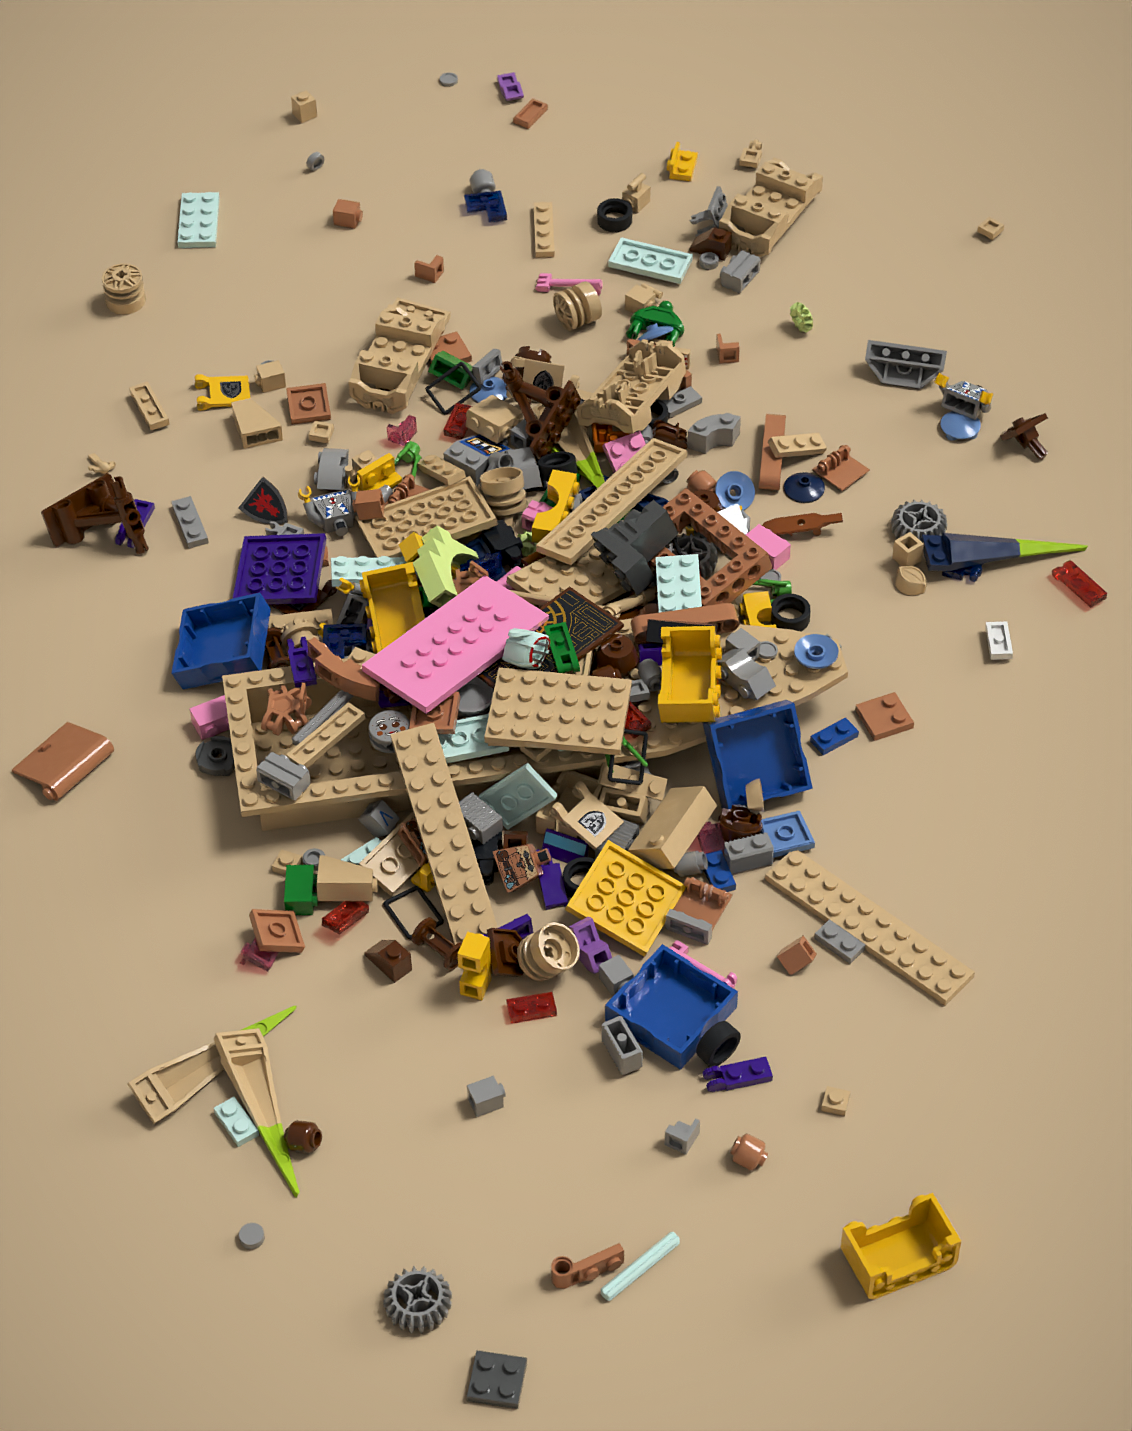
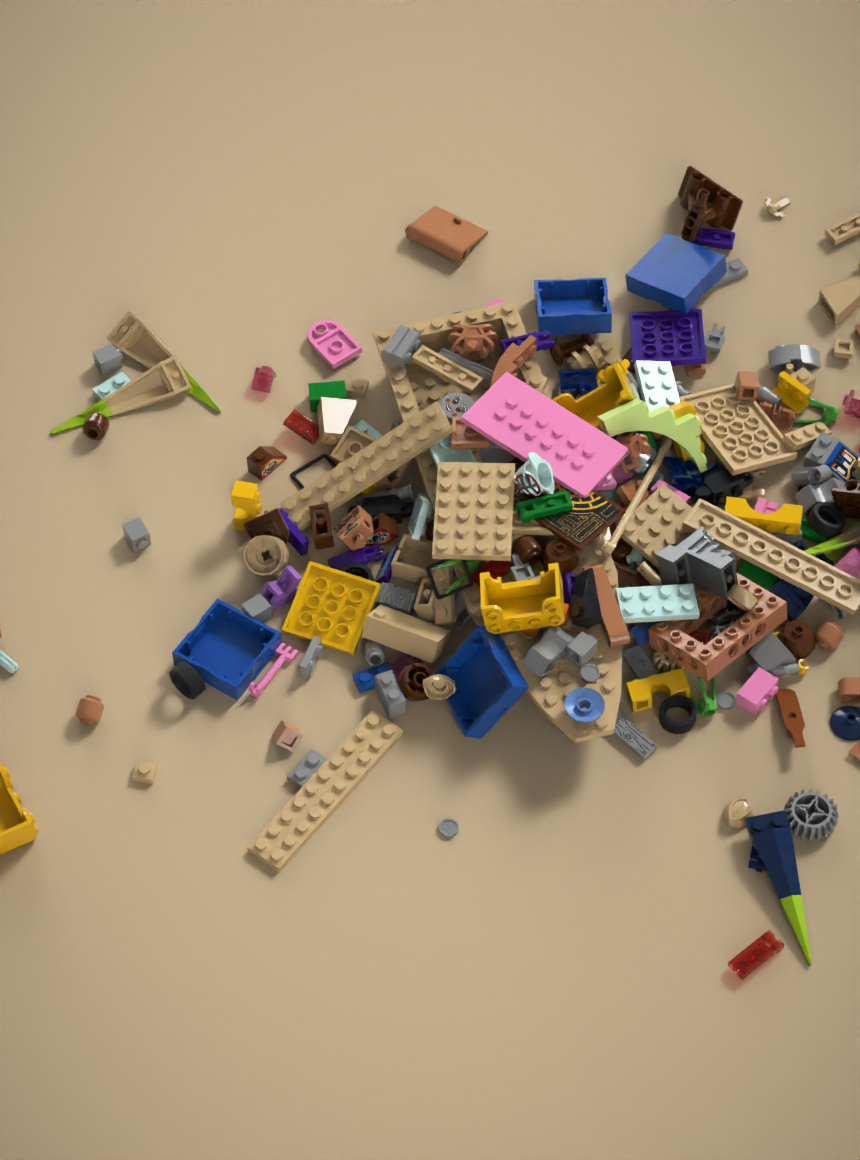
camera: 85 degrees right, 5 degrees up
(189, 549) = (676, 273): none -> tile
(191, 1122) = (107, 359): none -> light grey brick
(214, 882) = (333, 344): none -> bright pink plate
(251, 1235) = (14, 409): light grey tile -> none
(265, 503) = (742, 318): shield -> none
(276, 930) = (283, 385): nougat plate -> none
(311, 857) = (364, 404): light grey tile -> none
(332, 510) = (746, 359): light grey torso -> none
(439, 943) = (288, 480): reddish brown hose -> none
(480, 819) = (396, 493): light grey brick -> none
(504, 490) = (781, 479): tan wheel -> none
(507, 899) = (321, 526): none -> reddish brown slope
(531, 1007) = (226, 559): clear red plate -> none
(589, 818) = (403, 571): tan flag -> none
(622, 1045) = (183, 616): light grey brick -> none
(682, 1135) = (104, 667): light grey panel -> none
(686, 514) = (741, 597): none -> tan hat
(703, 901) = (337, 665): nougat hinge -> none
(738, 1074) = (168, 704): dark purple hinge -> none
(740, 484) = (817, 658): medium blue dish -> none
(788, 833) = (417, 723): medium blue plate -> none
(834, 736) = (536, 757): blue plate -> none
(884, 716) = (565, 795): nougat plate -> none
(908, 550) = (767, 801): tan brick -> none
(920, 819) = (448, 827): none -> light grey piece
(999, 640) = (669, 884): white plate -> none

